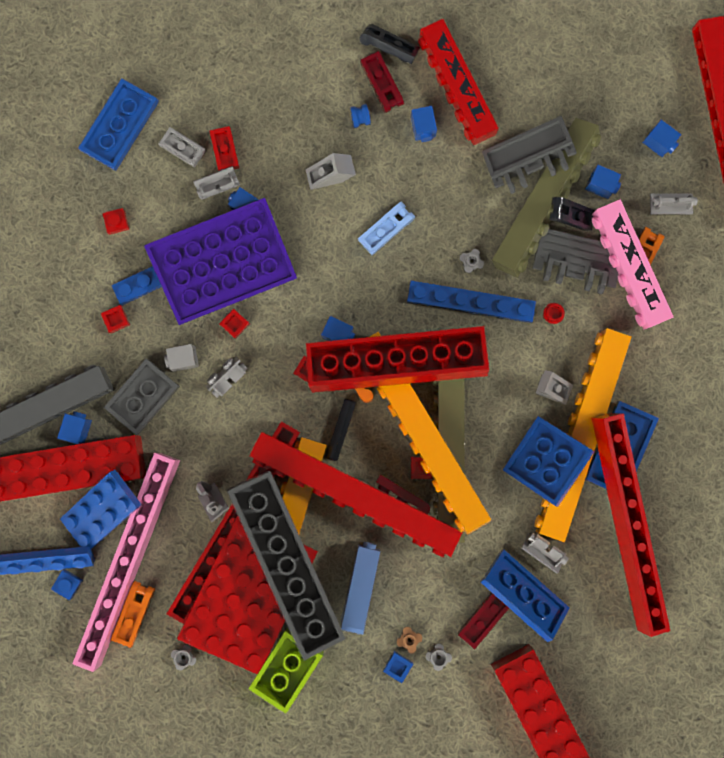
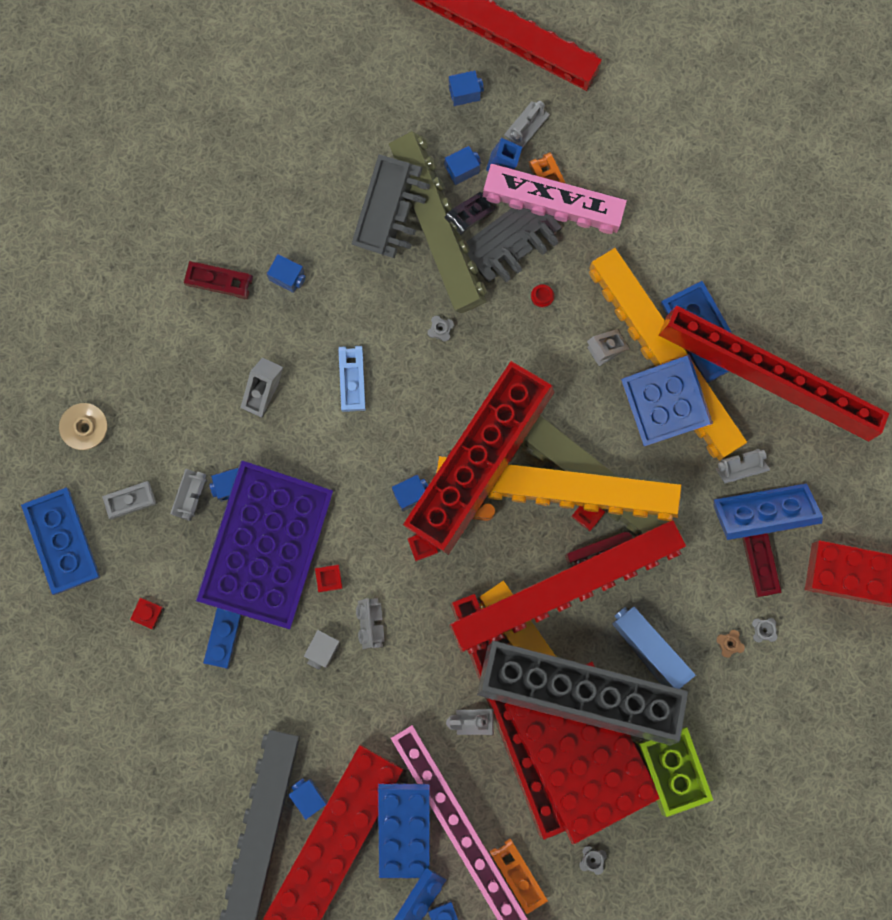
camera: 55 degrees left, 5 degrees down
(115, 319) = (237, 683): red plate -> none
(141, 397) = (327, 714): dark grey plate -> none
(201, 68) = (75, 418): none -> tan dish
(224, 148) = (162, 463): red plate -> none
(341, 430) = (499, 559): black axle -> none
(360, 115) = (233, 322): blue wheel -> none
(389, 43) = (189, 246): black plate -> none
(398, 667) = (746, 672): blue plate -> none
(458, 82) = (273, 216): red brick -> none
(471, 301) = (475, 357): blue plate -> none
(636, 205) = (505, 154): none -> blue brick

